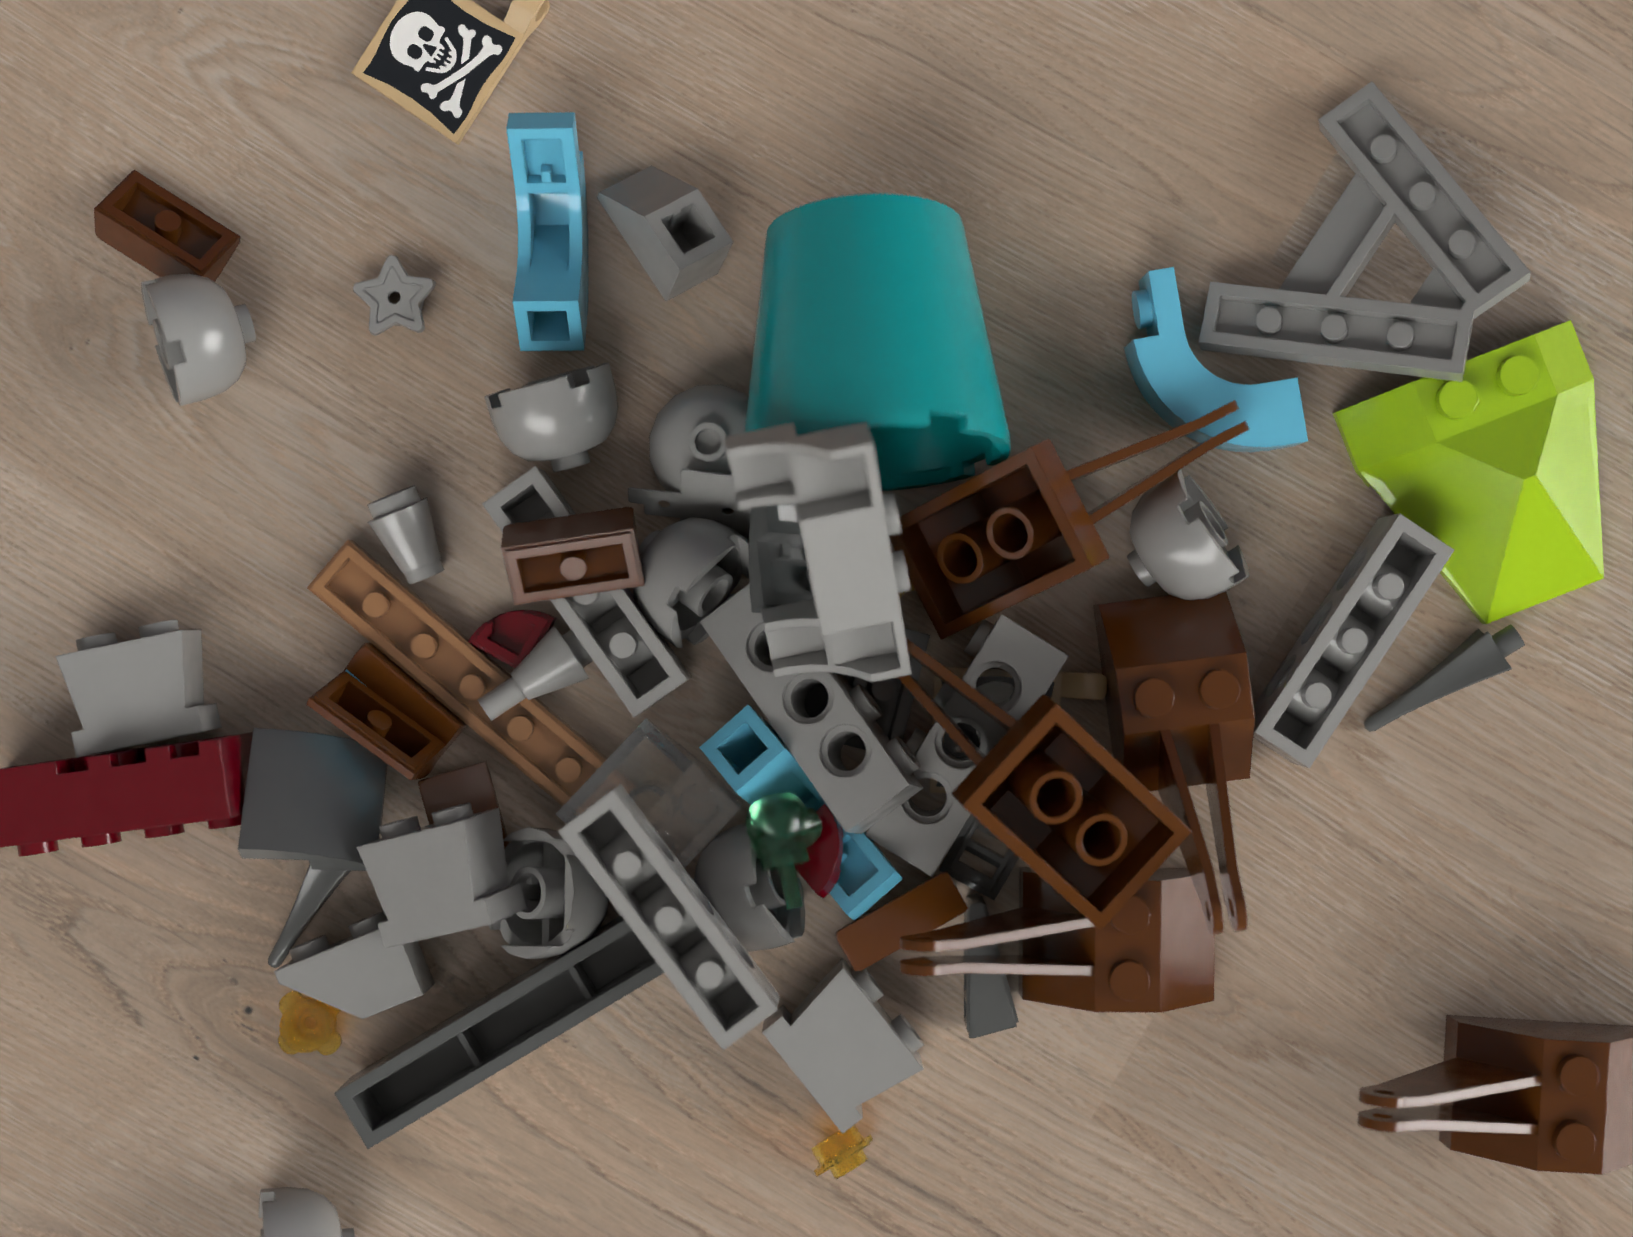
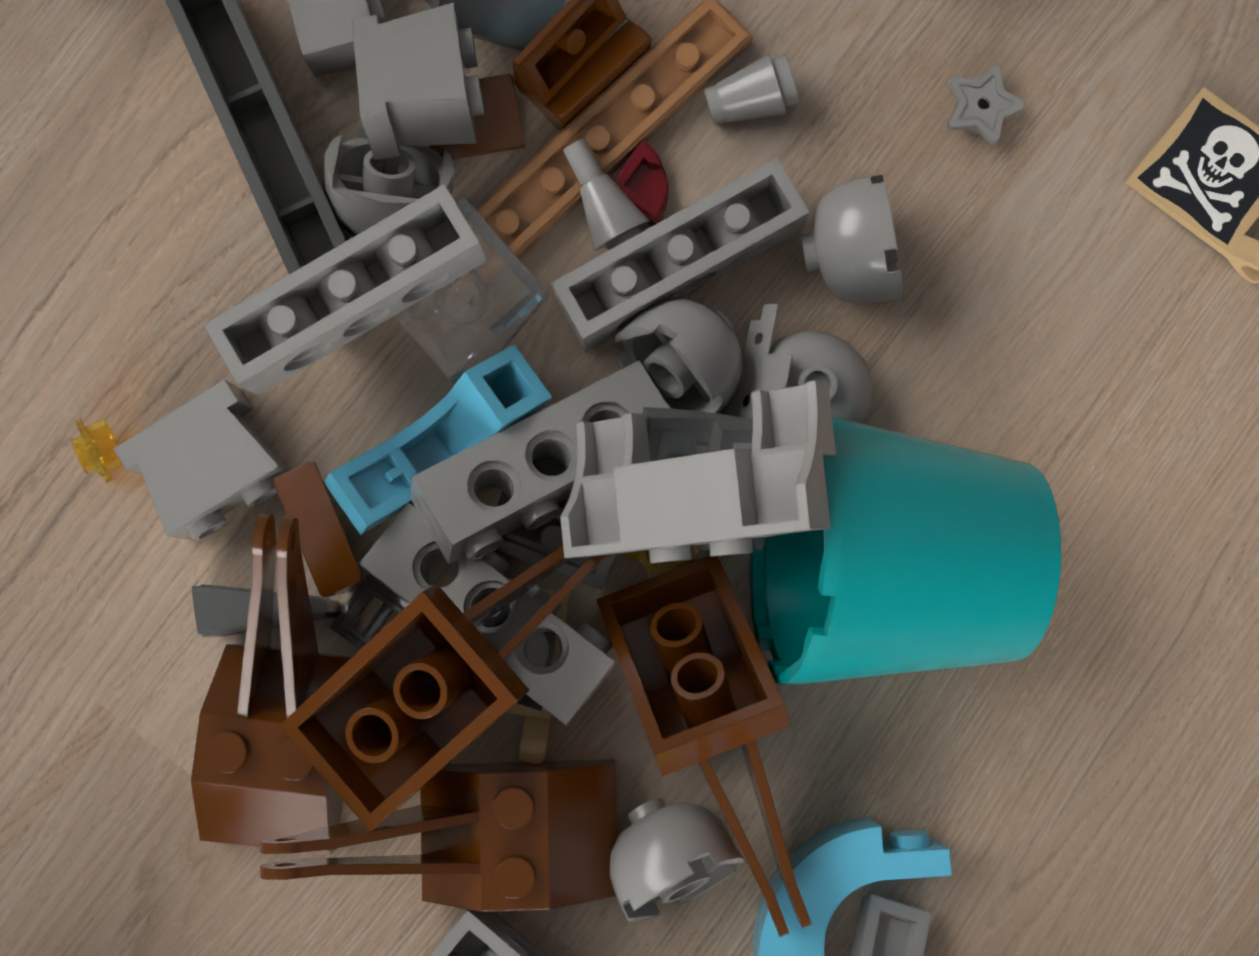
camera: 90 degrees right, 5 degrees down
(552, 232) = (1033, 260): medium azure arch -> none
(572, 555) = (717, 237): reddish brown slope -> none
(667, 229) = (1028, 371): light grey slope -> none
(746, 895) = (369, 384): light grey cylinder -> none
(779, 834) = (417, 413): clear green piece -> none
(824, 855) = (396, 449): dark red tile -> none

